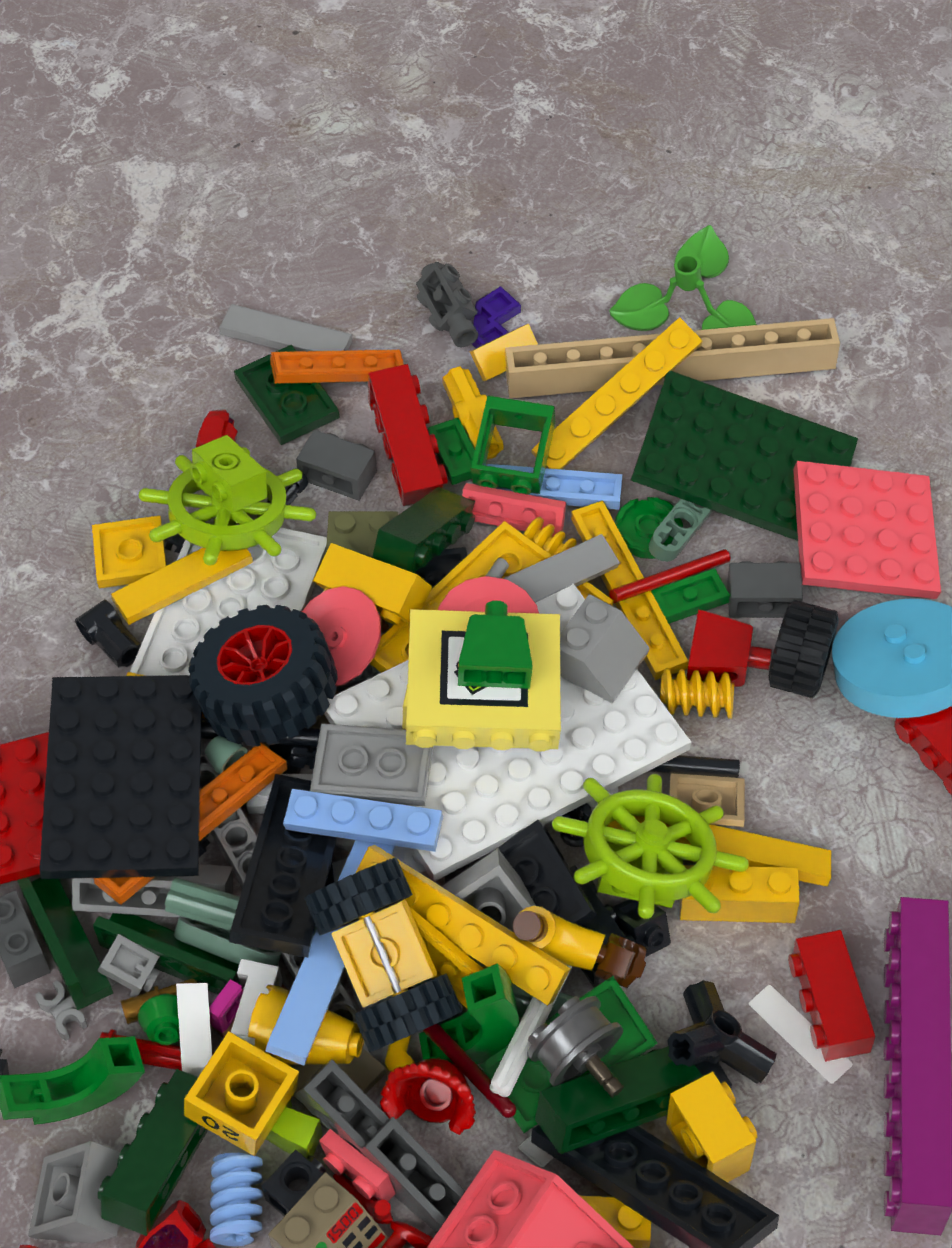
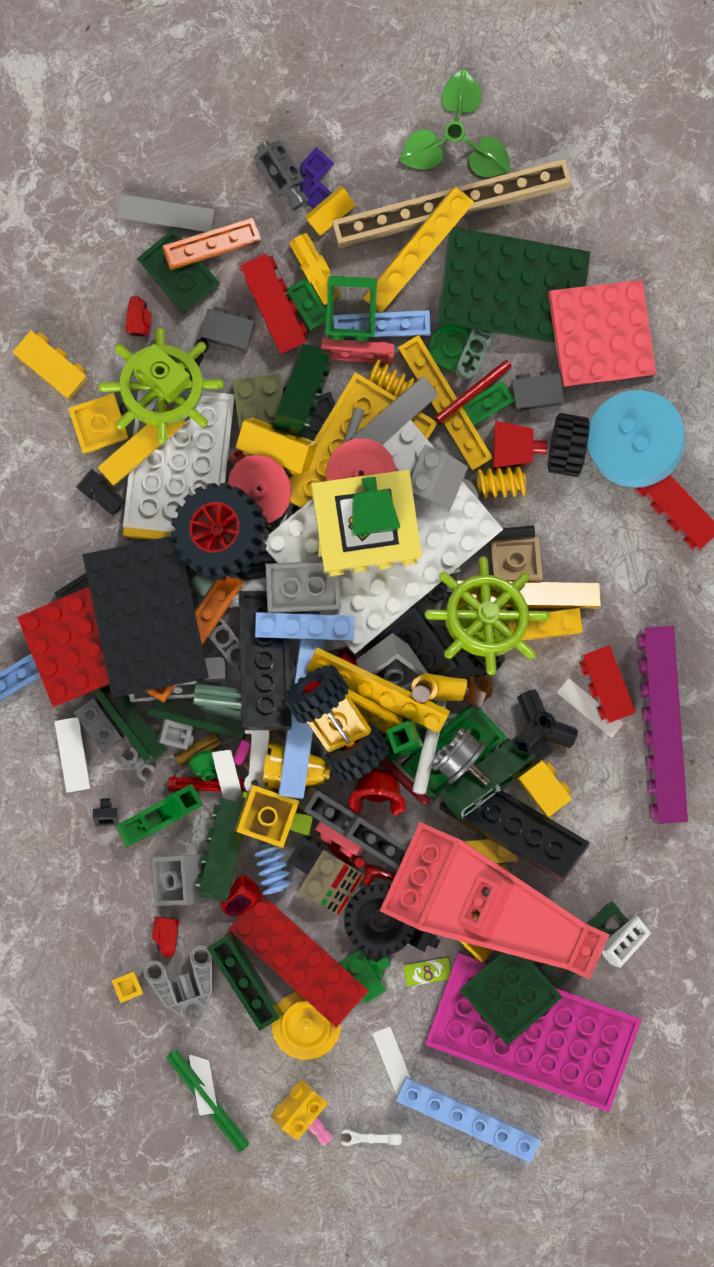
camera: 10 degrees left, 30 degrees up
(84, 474) = (51, 364): none -> yellow brick

